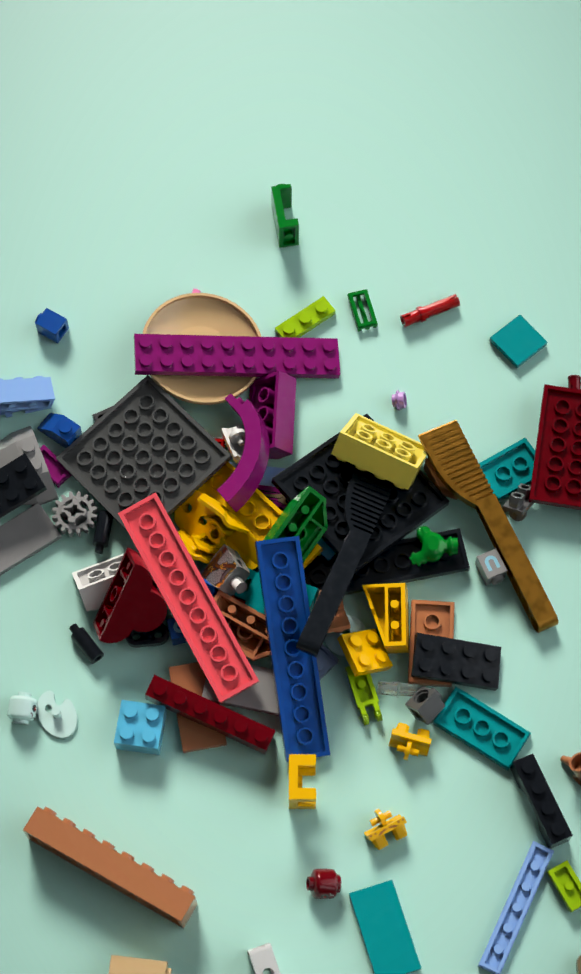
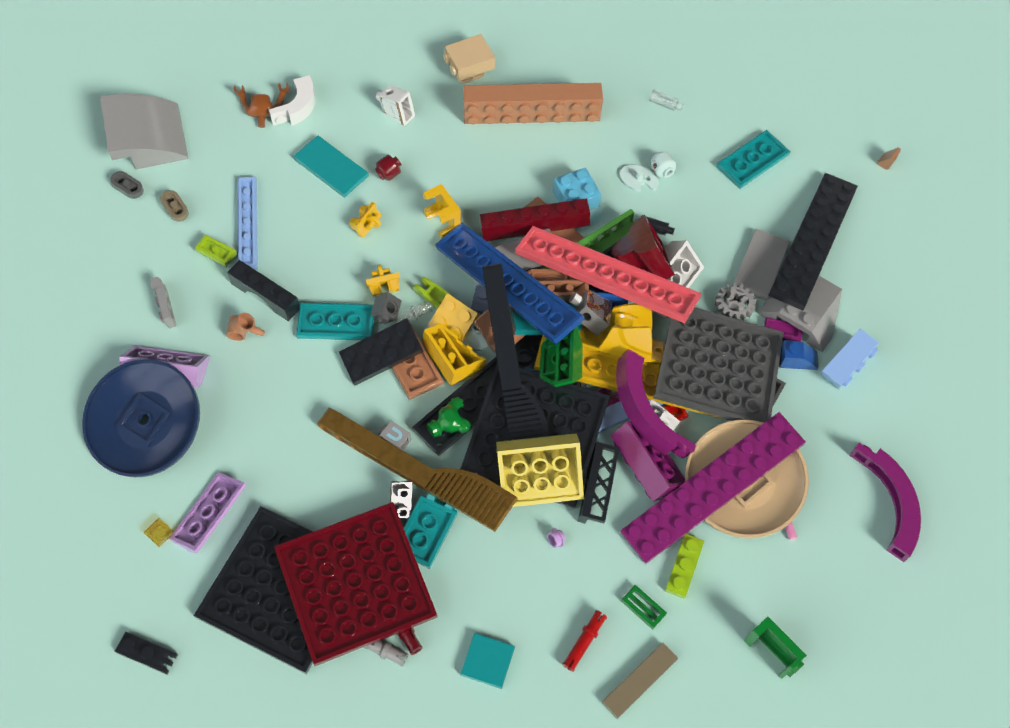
camera: 145 degrees right, 5 degrees down
(51, 325) = (877, 432): blue brick -> none
(82, 257) = (903, 497): none -> magenta arch
(102, 531) = (705, 301): black cylinder -> none
(147, 656) = (609, 233): none -> bright green fence
(339, 421) = (590, 484): none -> black fence
(404, 261) = (639, 680): none -> dark tan tile

